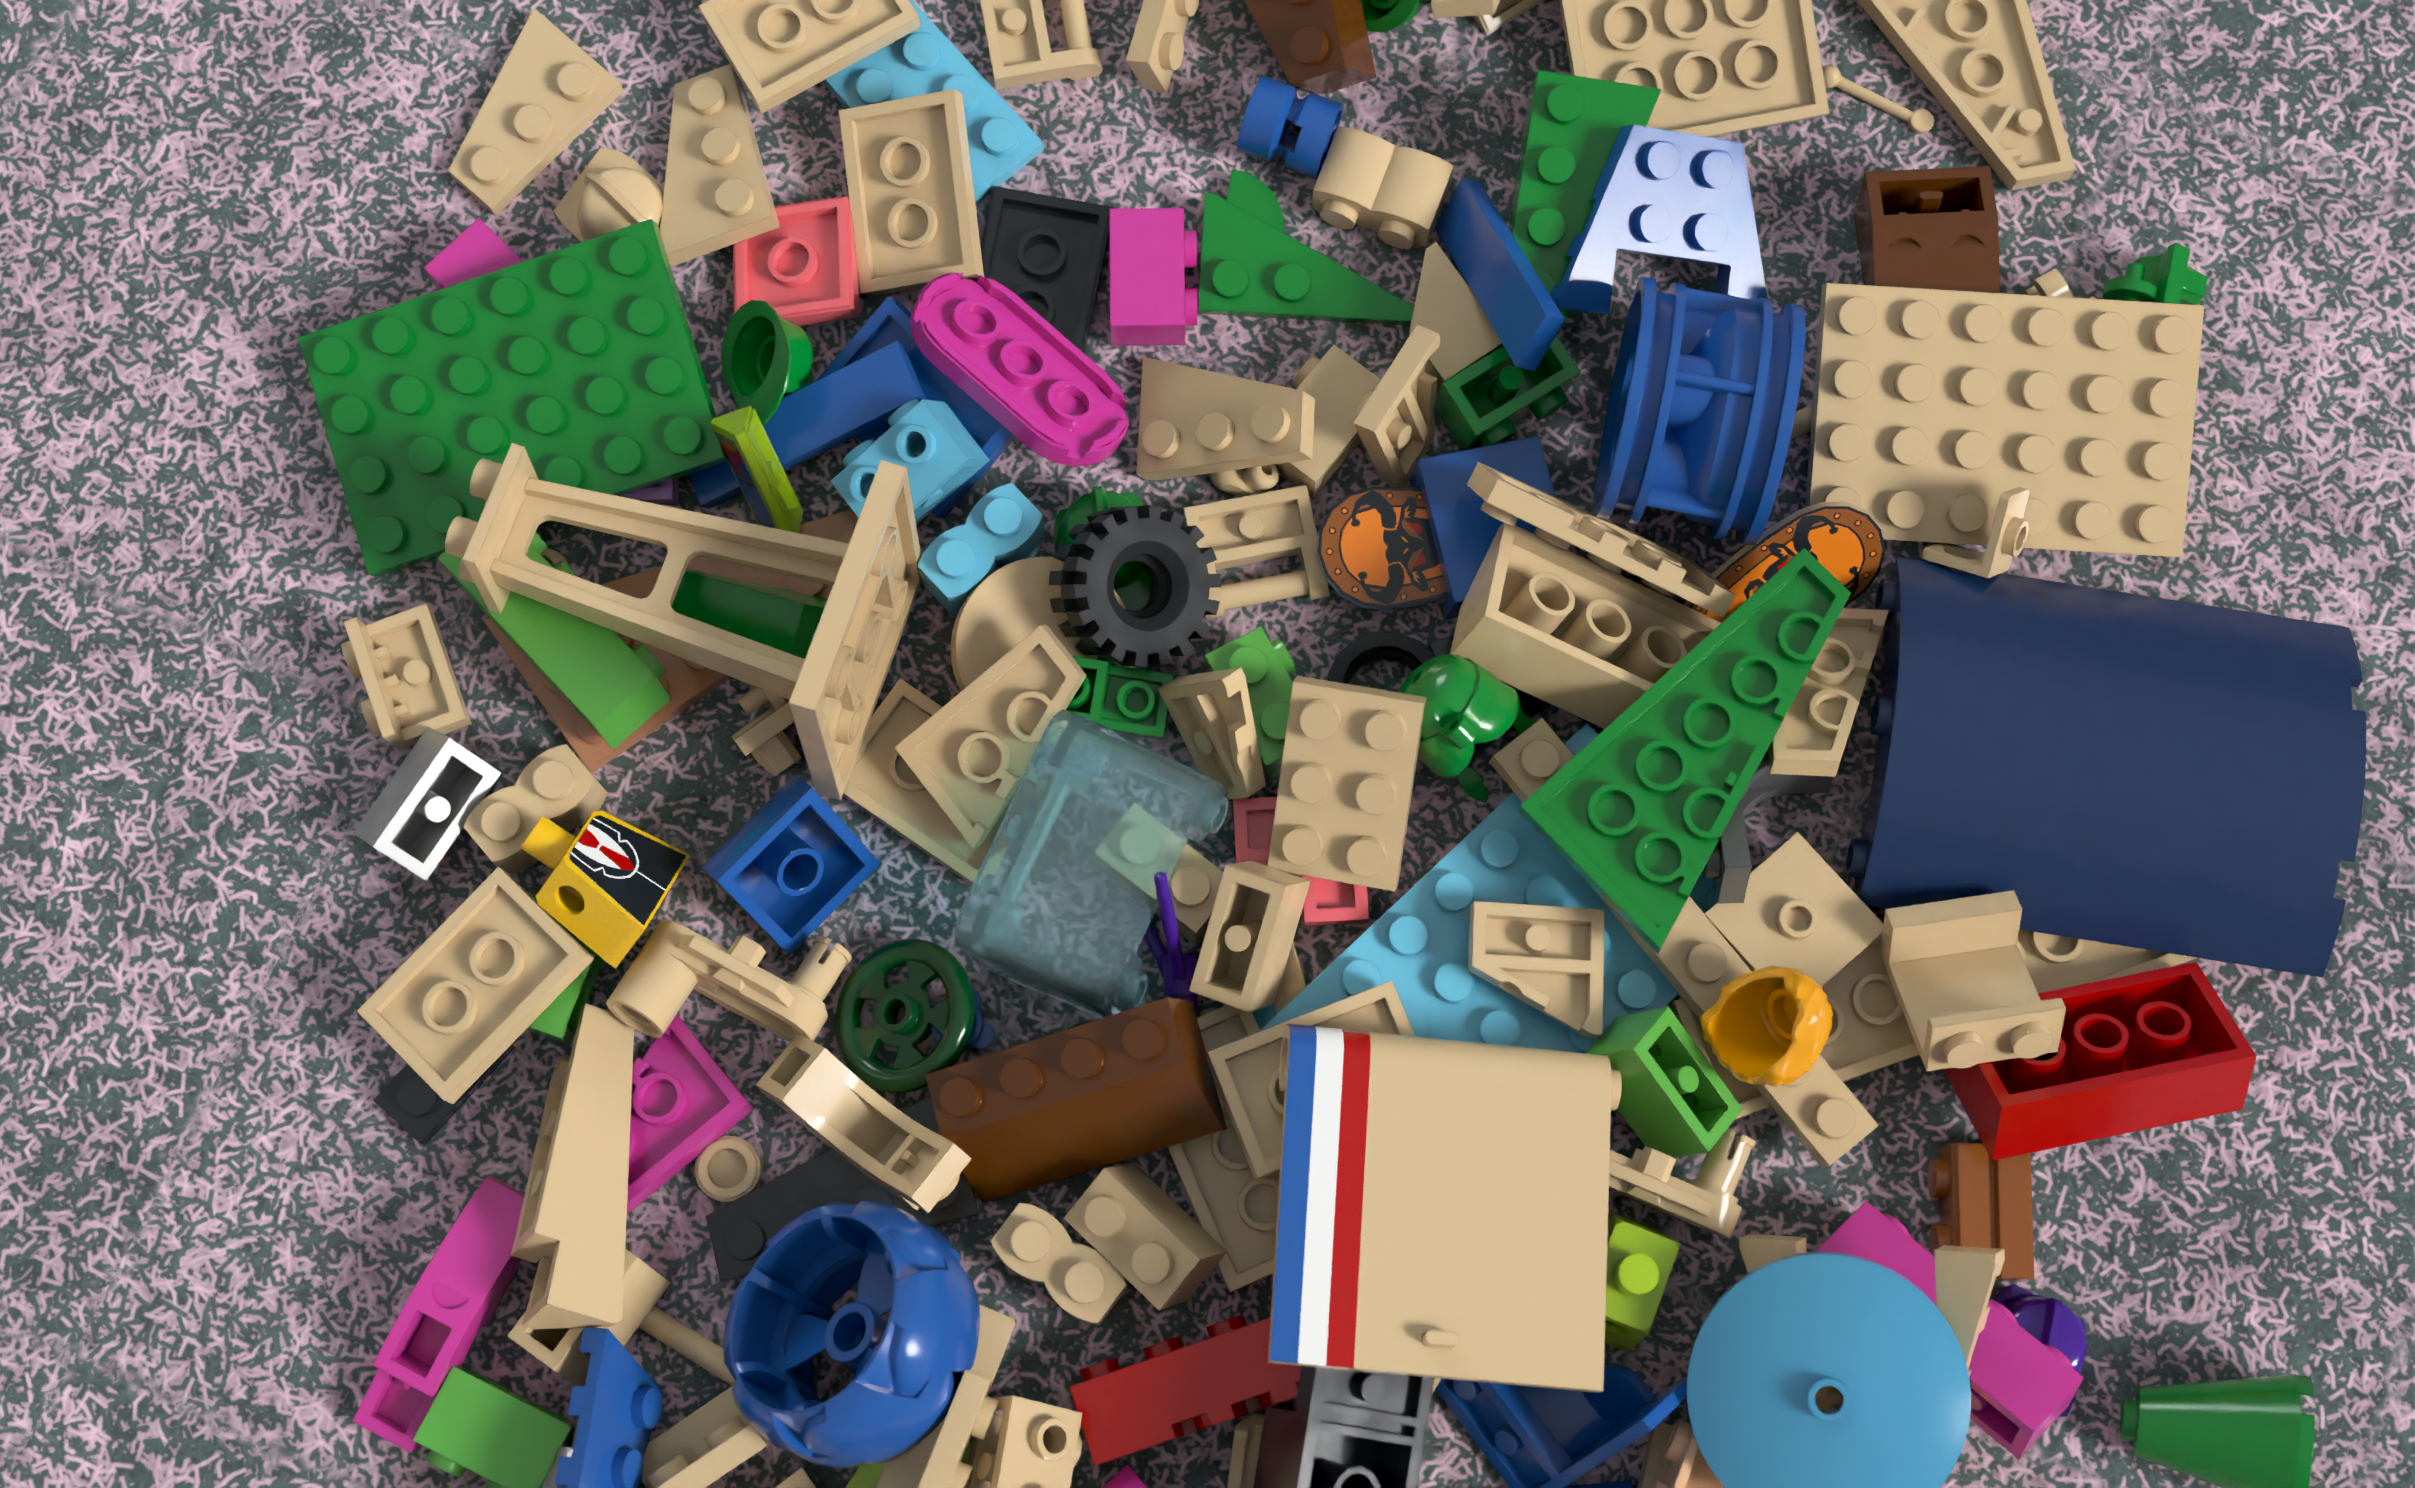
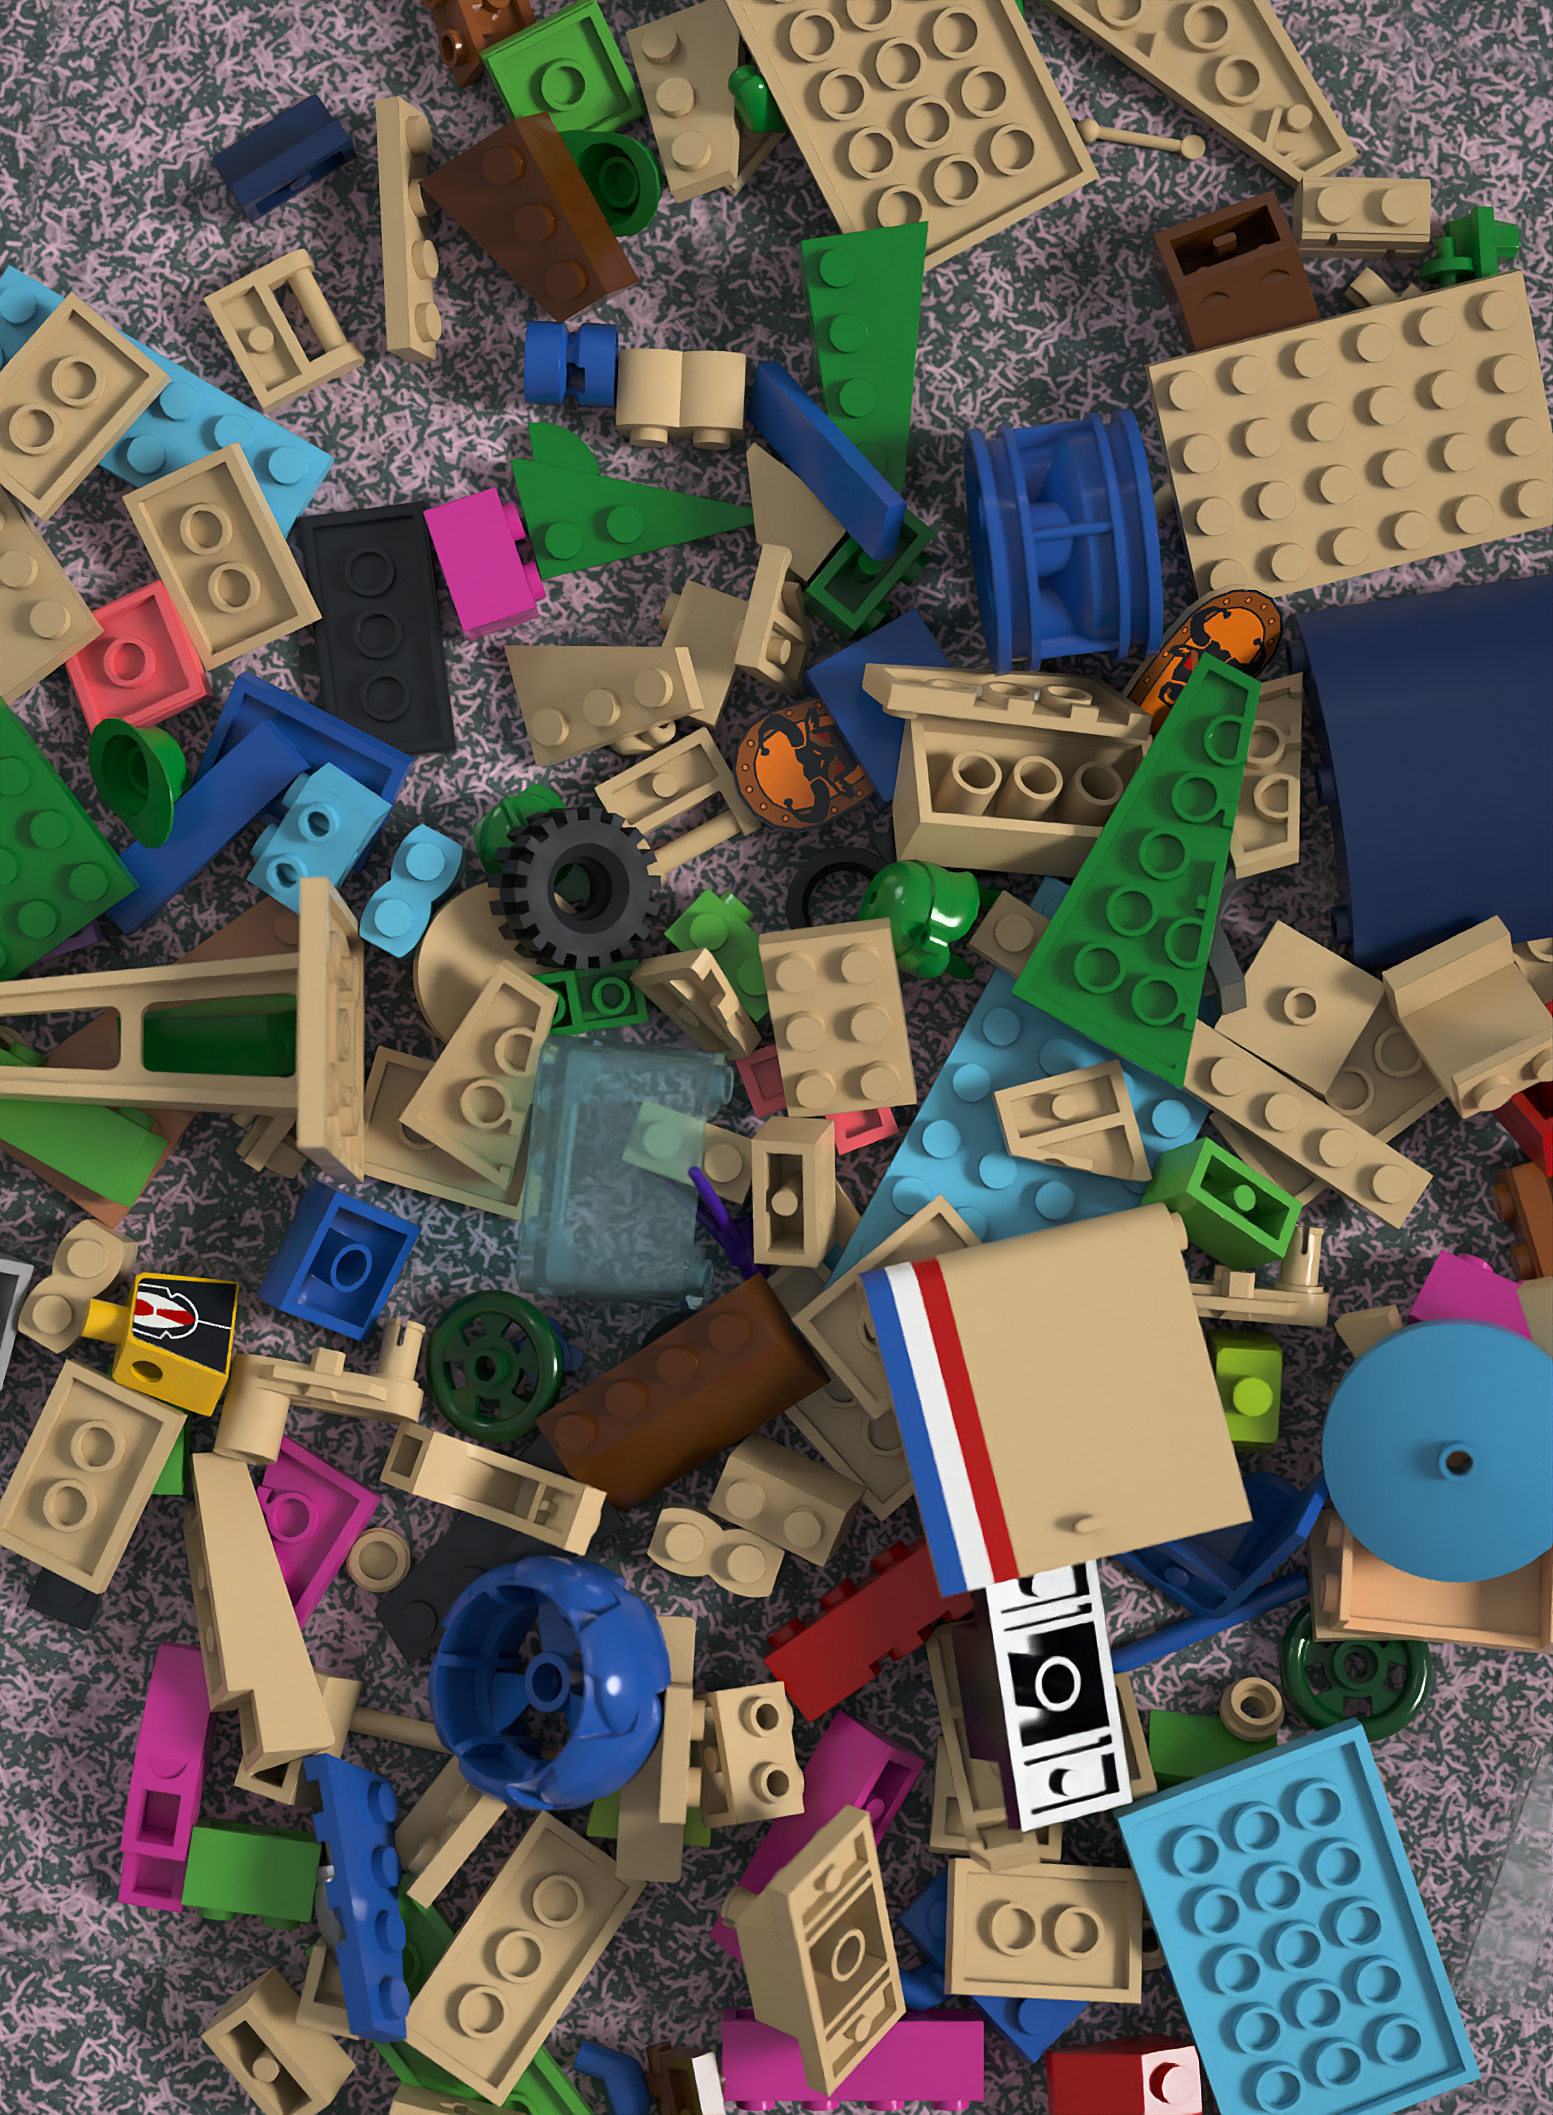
camera: 15 degrees left, 10 degrees up
(758, 469) = (175, 891): lime slope -> none
(1019, 369) = (390, 705): dark pink tile -> none
(1666, 200) = (972, 329): wing -> none
(1768, 1025) = (1305, 1125): light orange hair -> none
(2005, 540) = (1394, 570): tan bracket -> none
(2064, 224) = (1361, 217): none -> tan brick

